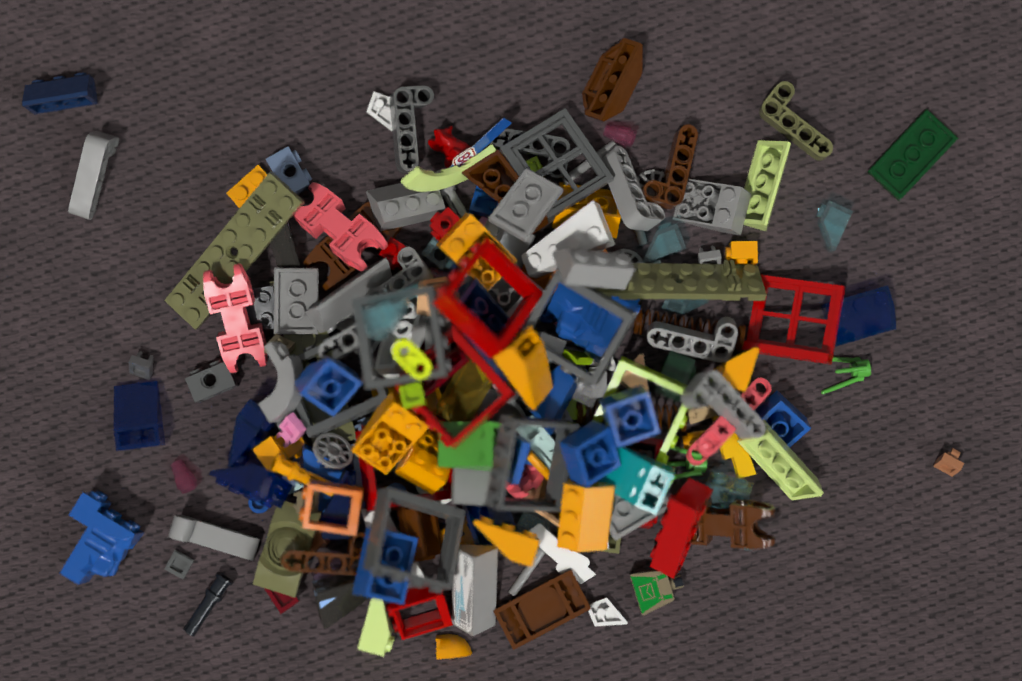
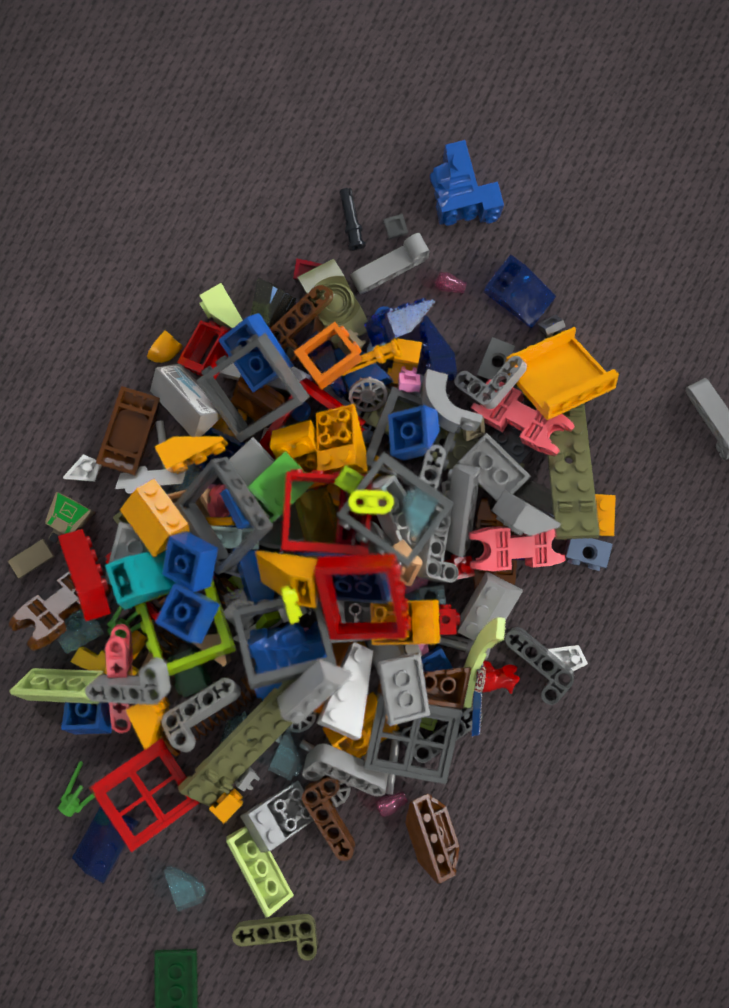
camera: 135 degrees right, 0 degrees up
(175, 322) = (562, 374): none -> light orange panel
(241, 363) = (488, 390): none -> light grey beam
(311, 243) = (522, 516): none -> light grey slope
(548, 343) = (289, 598): none -> neon yellow plate
(712, 585) = (31, 558): none -> dark tan tile

